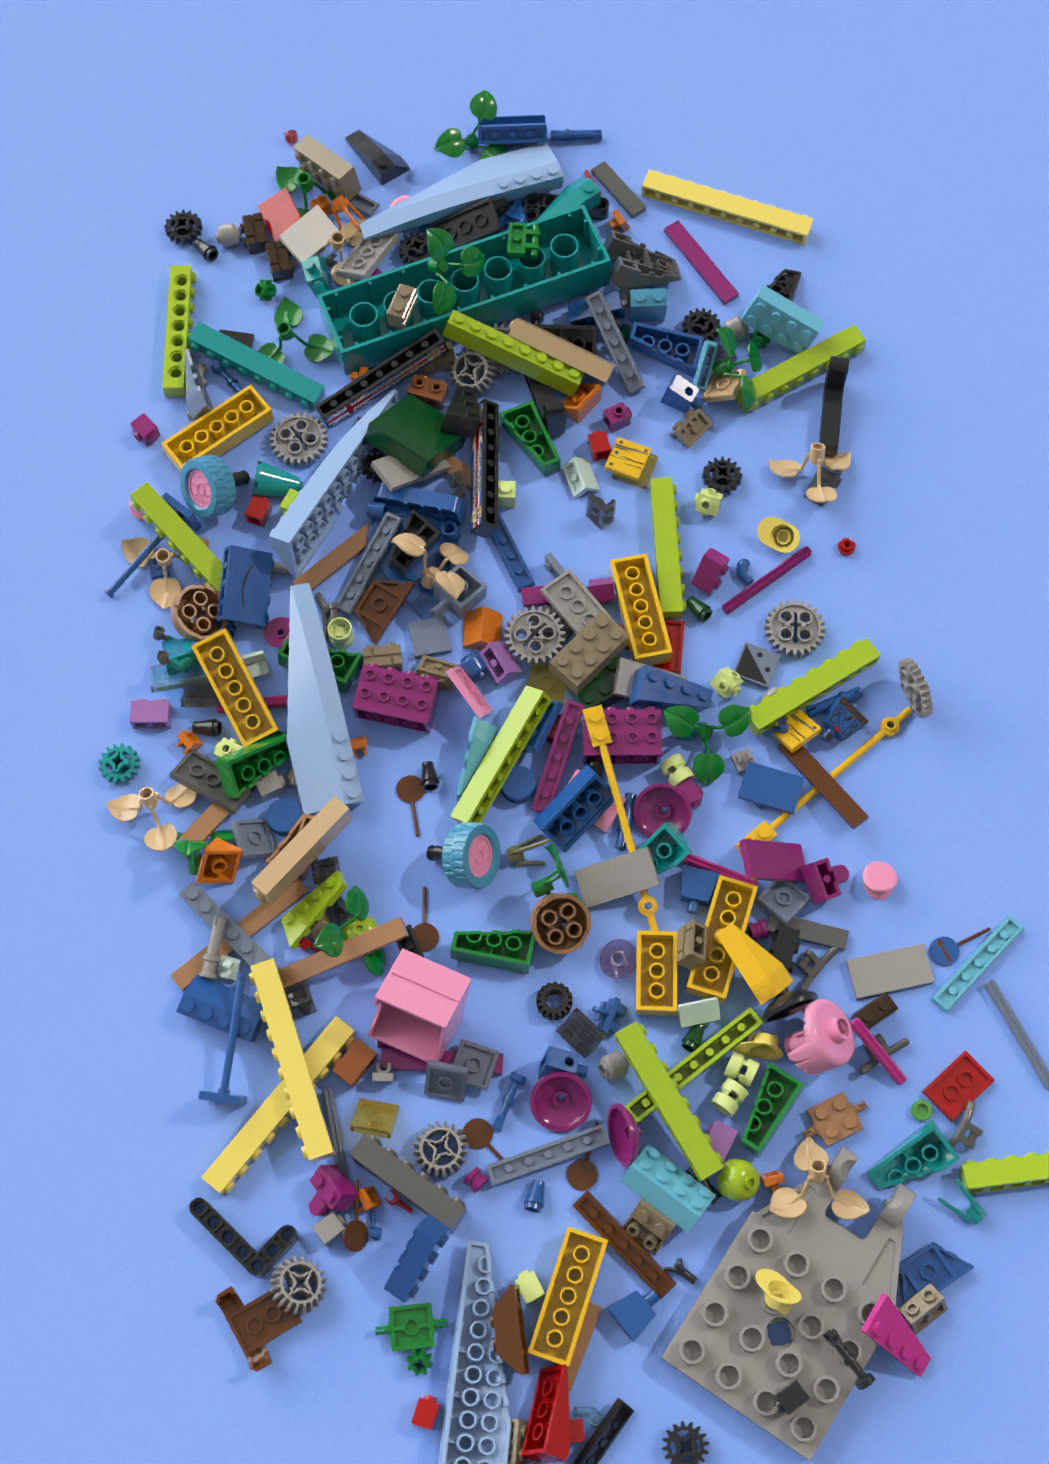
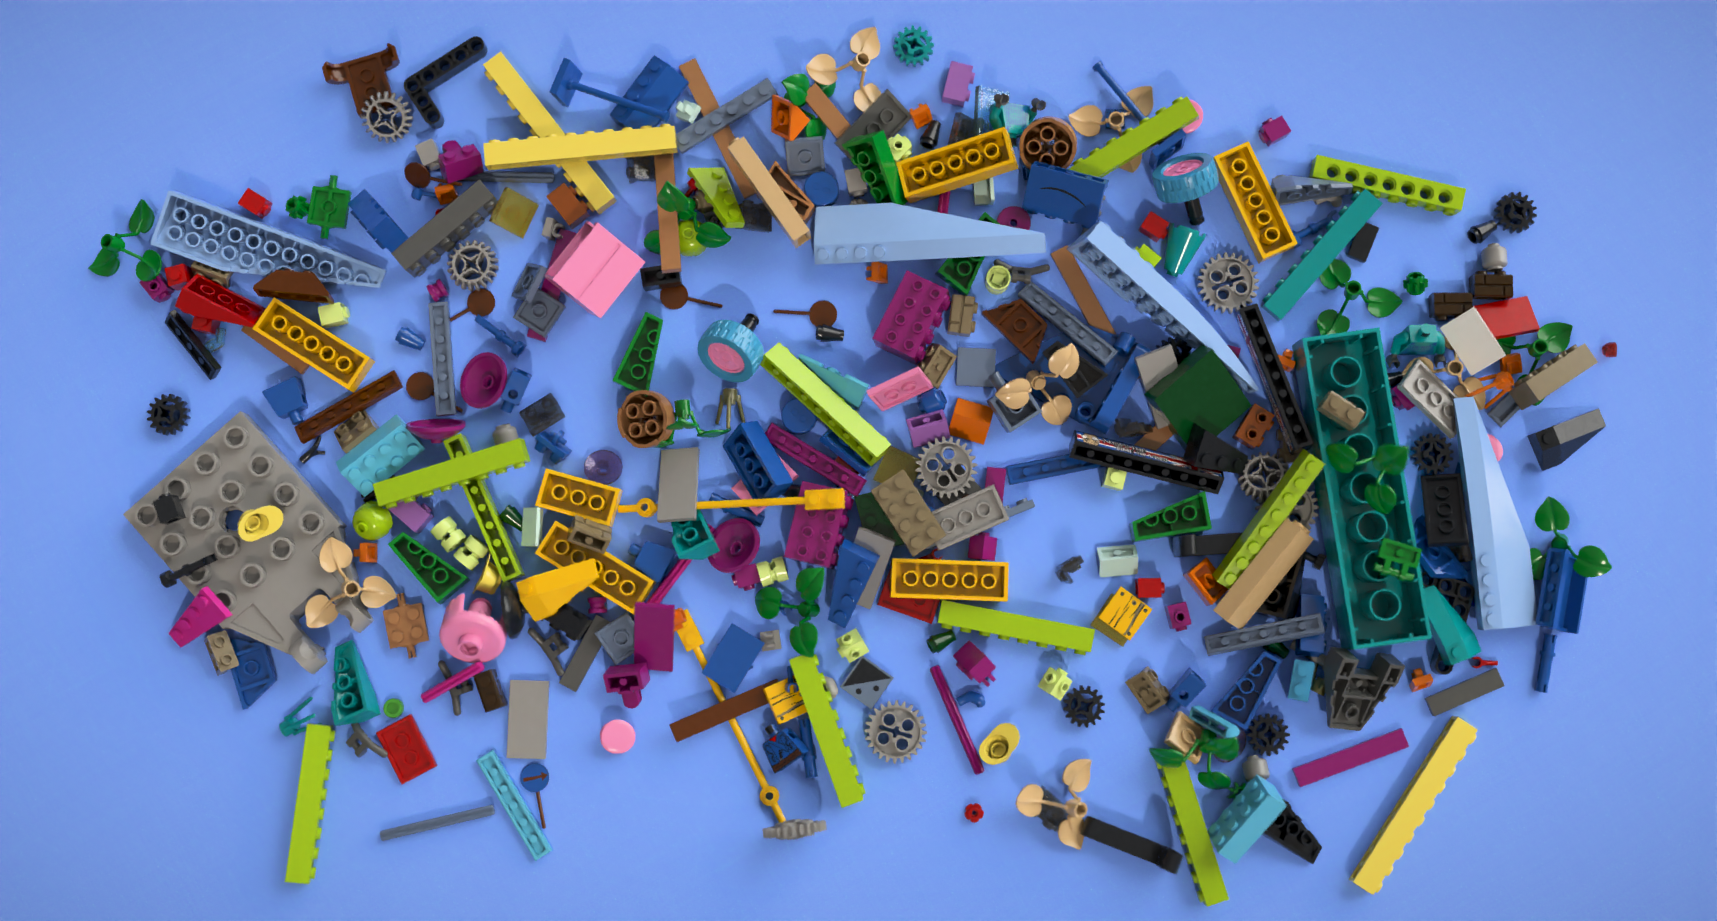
camera: 105 degrees right, 15 degrees up
(212, 957) = (698, 96): light grey pin -> none
(554, 1013) = (569, 399): black tyre -> none

